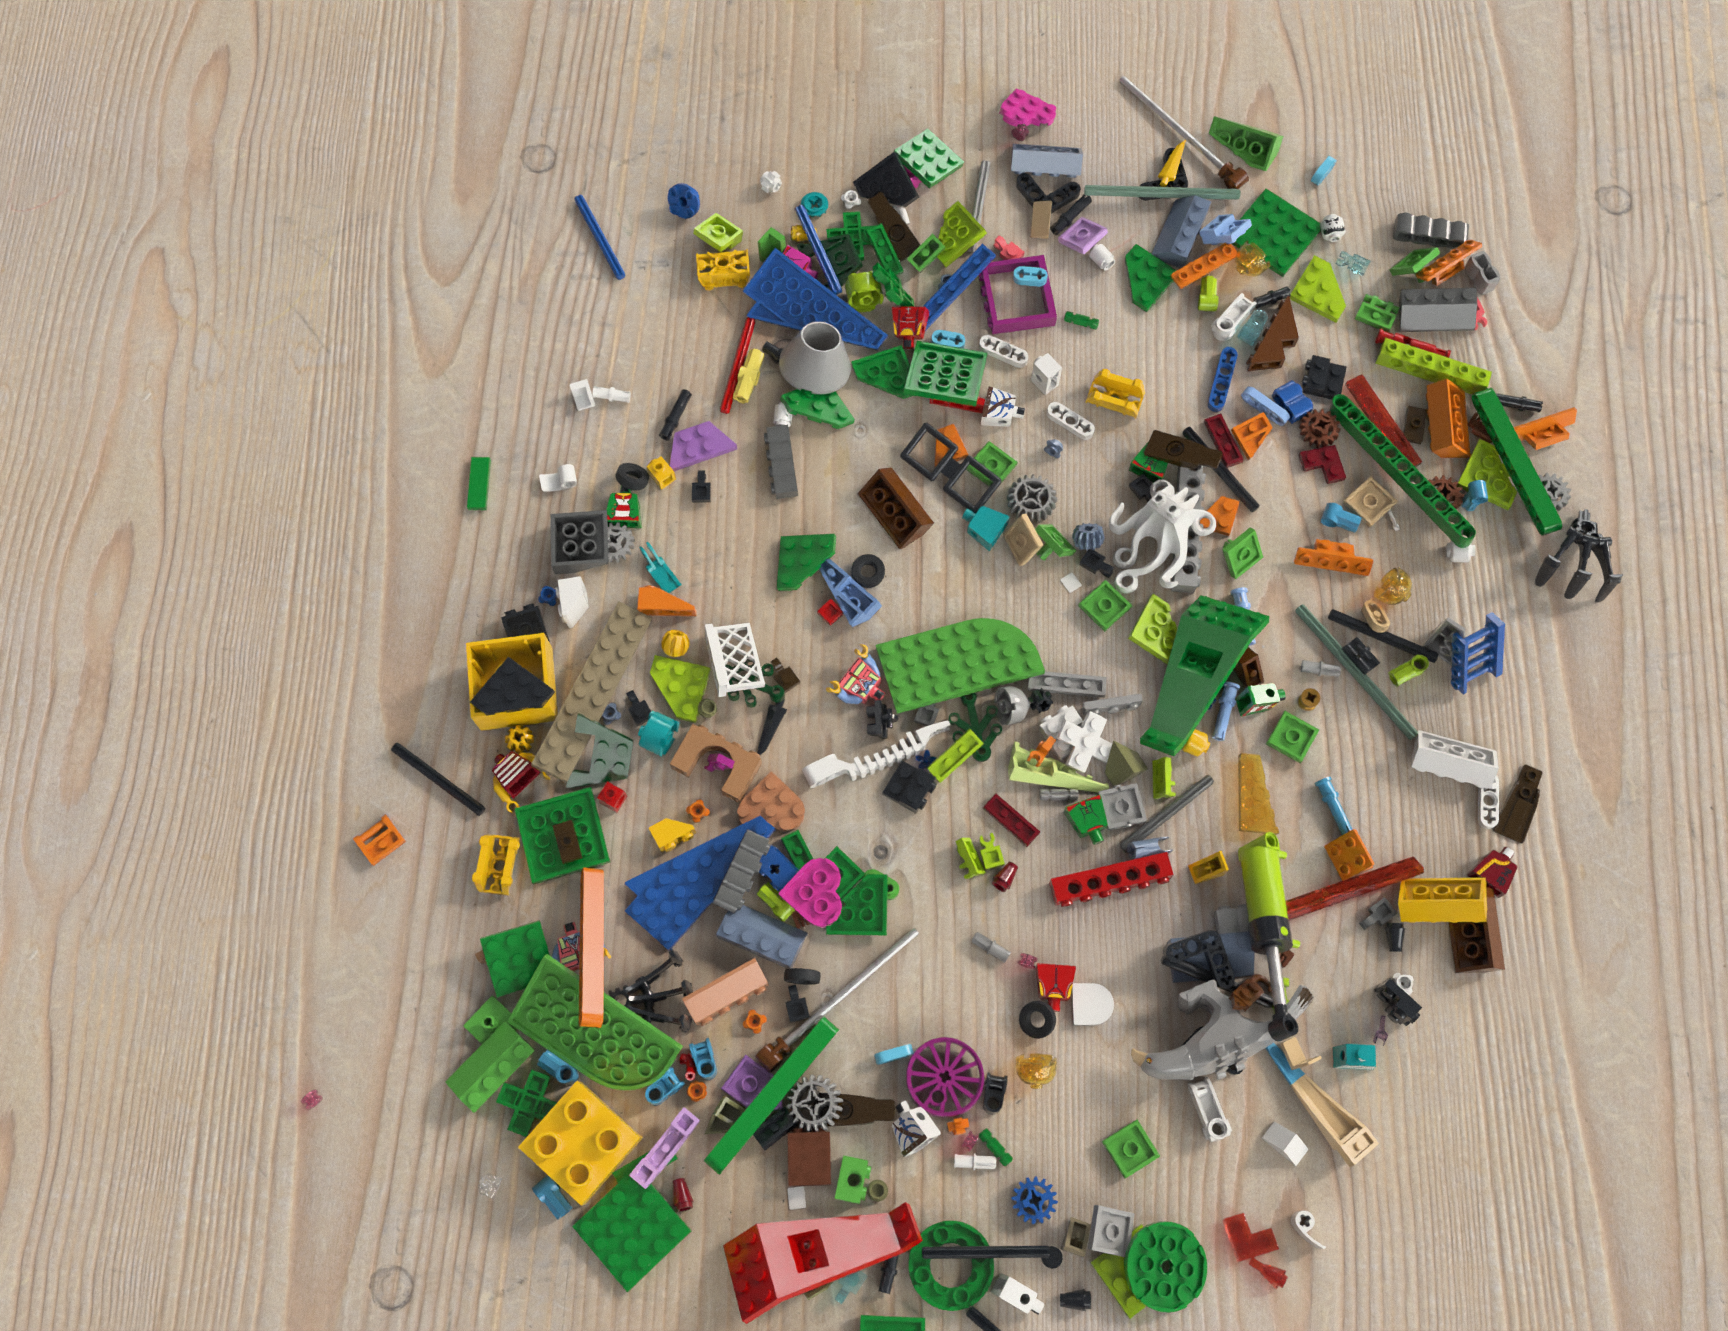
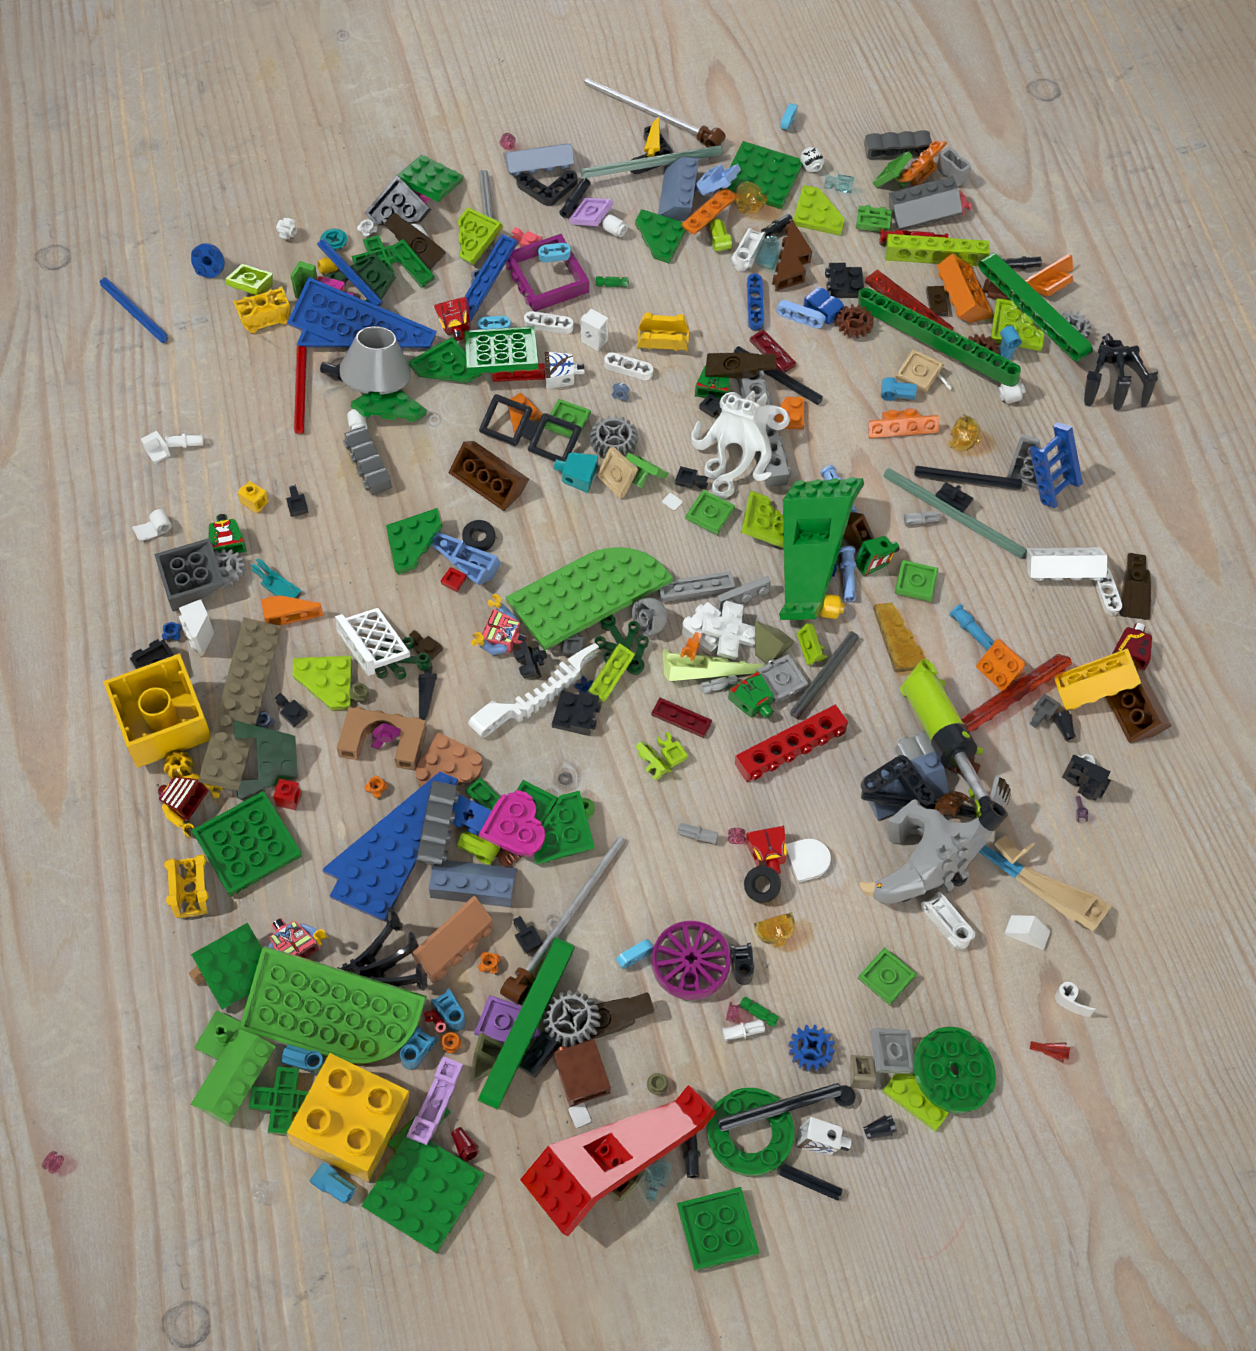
camera: 20 degrees left, 10 degrees down
(382, 844) = (62, 900): orange plate -> none
(438, 779) = (104, 824): black axle -> none
(478, 483) = (72, 549): green tile -> none
(511, 690) = (162, 711): black plate -> none
(567, 842) = (254, 845): dark brown plate -> none
(591, 948) = (308, 930): beam -> none
(635, 470) = (225, 505): black tyre -> none
(658, 733) = (317, 724): teal brick -> none
(671, 421) = (250, 450): black pin -> none
(671, 832) = (355, 812): yellow slope -> none
(675, 643) = (310, 641): yellow piece -> none
(698, 445) = (283, 465): medium lavender wing -> none
(748, 376) = (313, 395): light yellow piece -> none
(802, 976) = (524, 905): black tyre -> none
(848, 1167) = (630, 1093): bright green brick -> none
(863, 291) = (403, 298): lime brick -> none
(893, 286) = (427, 287): green plate -> none
(913, 1129) = (676, 1014): white torso -> none
(926, 253) = (452, 254): bright green brick -> none
(958, 1126) = (717, 1000): orange plate -> none
(1005, 877) = (691, 769): dark red cone -> none
(1026, 109) = (510, 121): dark pink plate -> none
(1040, 700) = (676, 605): black gear -> none
(1041, 219) = (549, 207): tan slope -> none
(1088, 536) = (676, 456): sand blue gear -> none
(1145, 848) = (814, 706): sand blue piece -> none
(1208, 868) = (879, 709): yellow slope -> none
(1242, 552) = (820, 436): bright green tile -> none
(1244, 1242) = (1022, 1029): clear red plate -> none
(1250, 143) = (717, 108): bright green wedge -> none
(1252, 434) = (796, 339): orange wing -> none
(1306, 703) = (920, 550): pearl gold wheel -> none
(1324, 458) = (870, 346): dark red plate -> none
(1356, 1056) = (1068, 833): teal torso -> none
(1375, 616) = (956, 462): tan plate -> none
(1408, 670) = (1000, 499): lime piece -> none

